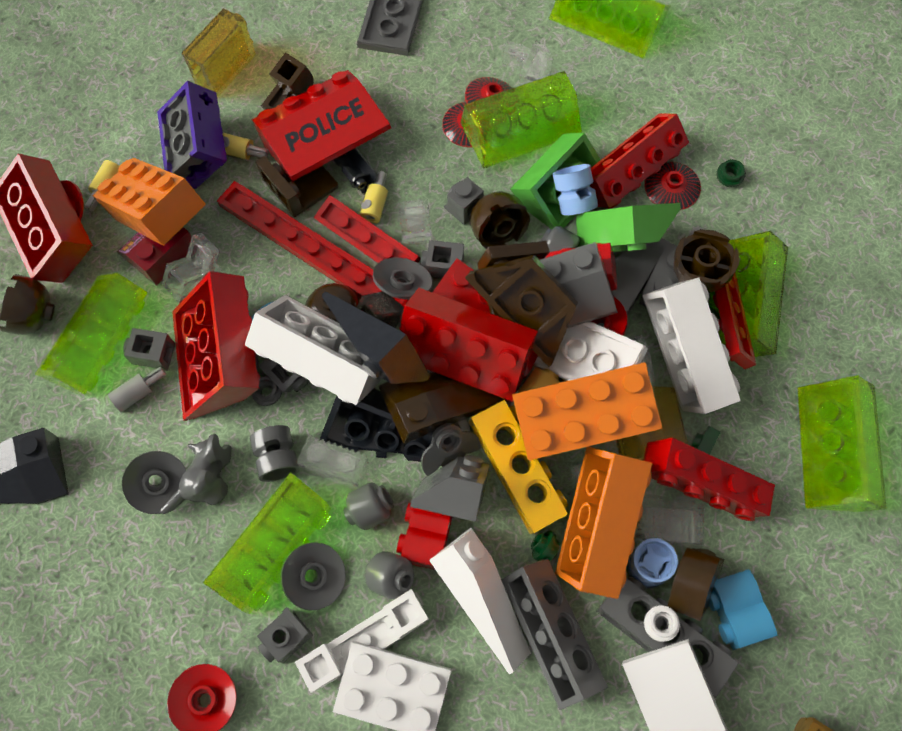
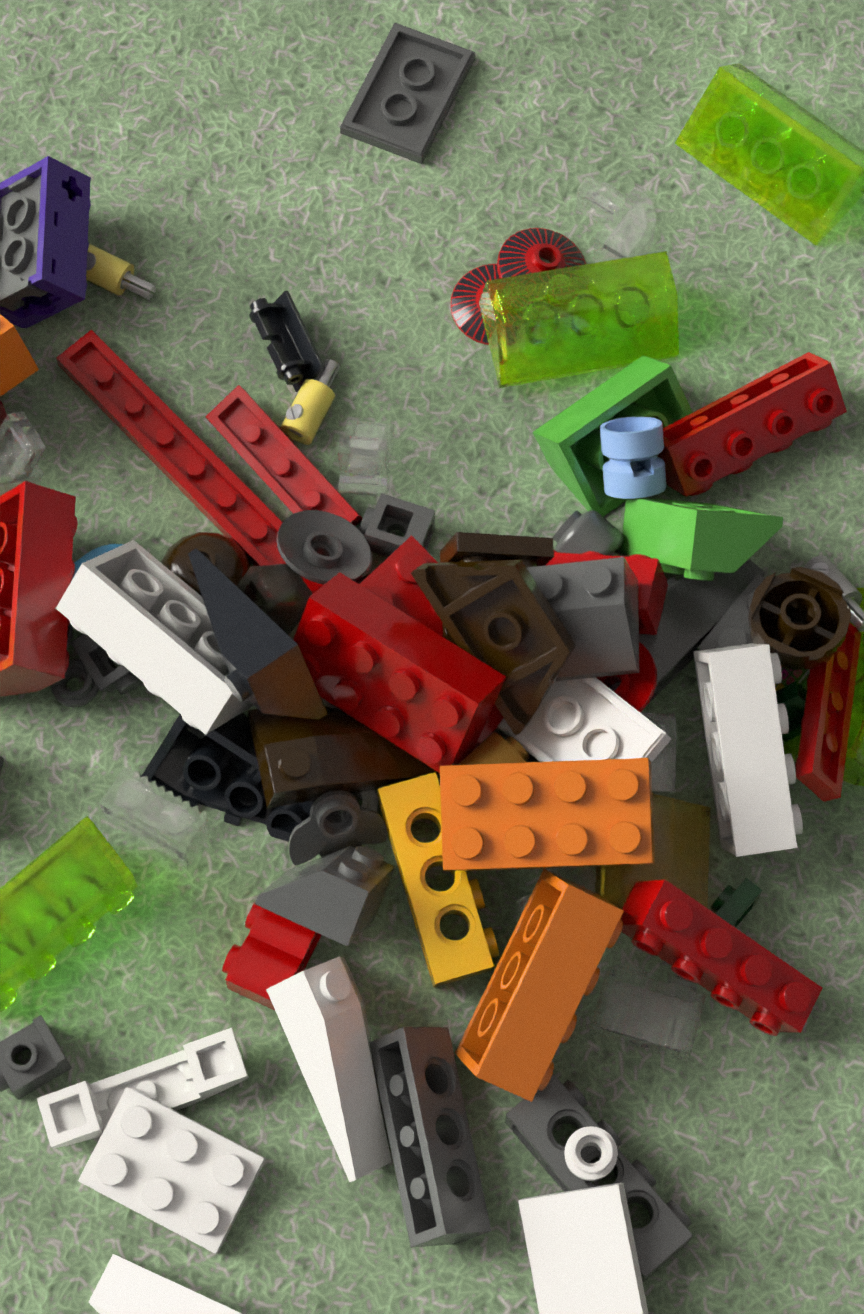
camera: 10 degrees right, 0 degrees up
(220, 51) = (109, 106): clear yellow brick -> none
(274, 453) = (67, 778): dark grey wheel -> none
(291, 80) = (216, 189): dark brown brick -> none
(300, 193) = (194, 349): dark brown bracket -> none
(320, 124) = (248, 264): red slope -> none
(328, 578) = (113, 979): dark grey dish -> none
(368, 506) = (194, 893): dark grey head -> none
(389, 574) = (203, 1000): dark grey head -> none
(461, 197) = (452, 430): dark grey brick -> none
(499, 219) = (500, 482): dark brown cylinder -> none
(545, 546) = (450, 1008): dark green plate -> none
(652, 562) = (604, 1065): light blue wheel -> none
(663, 191) = (802, 495): dish -> none
(695, 582) = (658, 1105): dark brown brick -> none
(741, 610) = (722, 1164): dark azure brick -> none

